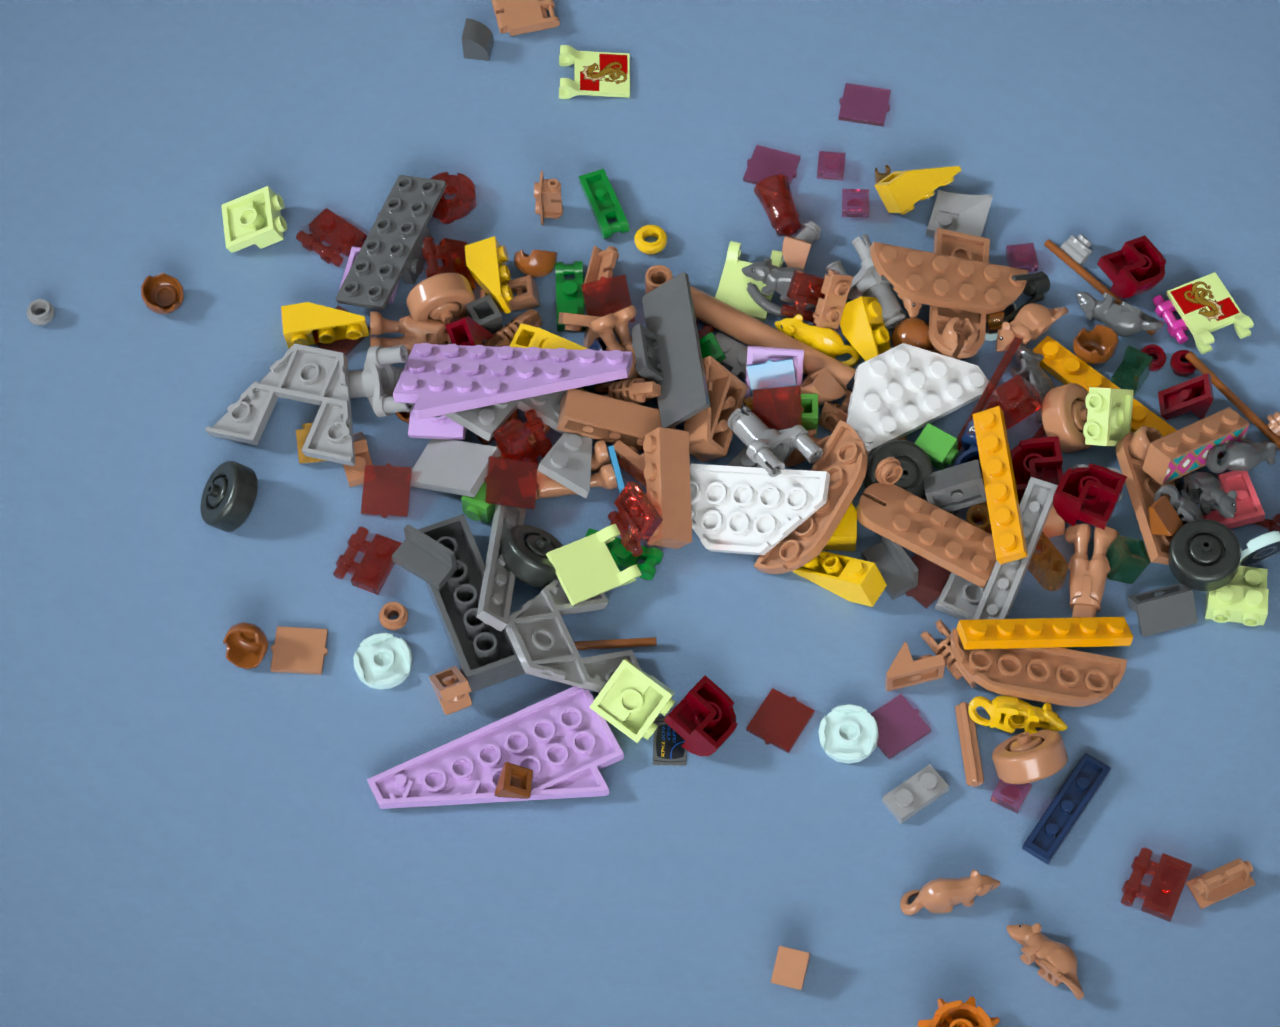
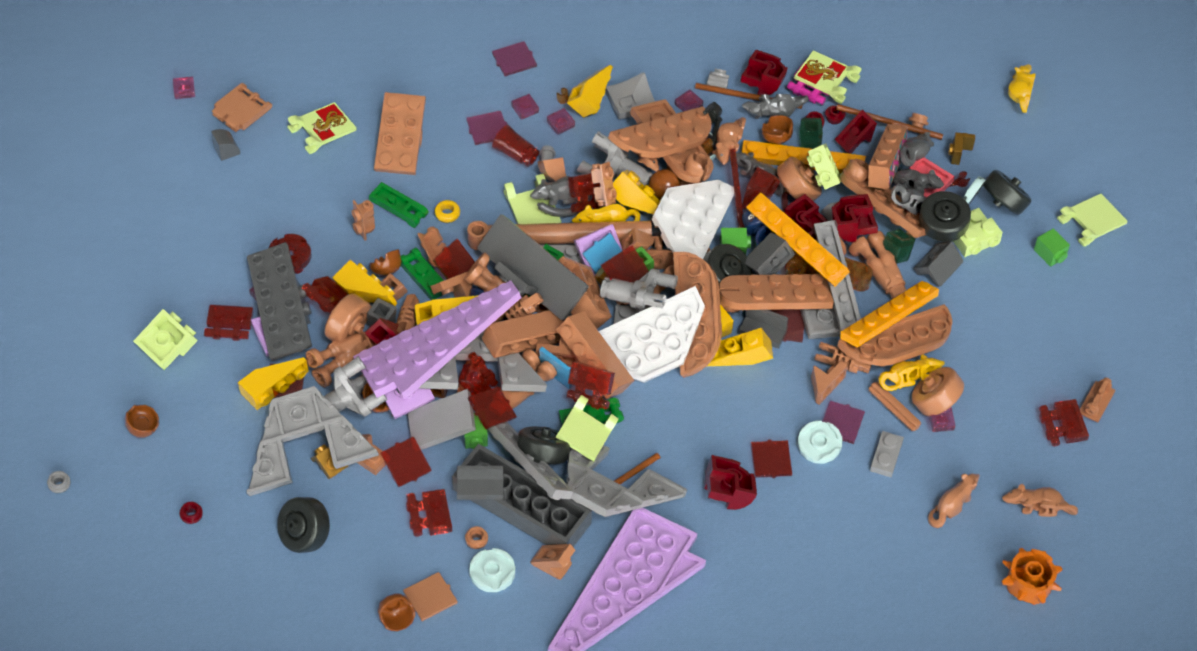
camera: 40 degrees left, 5 degrees down
(137, 412) = (190, 507): none -> dark red plate
(514, 782) = (646, 591): dark orange slope -> none
(633, 701) = (681, 496): yellowish green plate -> none
(664, 125) = (400, 133): none -> nougat plate
(667, 746) = (715, 512): sticker -> none
(790, 967) = (901, 597): nougat brick -> none
(888, 471) = (726, 267): nougat plate -> none
(1066, 808) = (978, 411): dark blue tile -> none
(1163, 518) = (908, 207): dark orange slope -> none

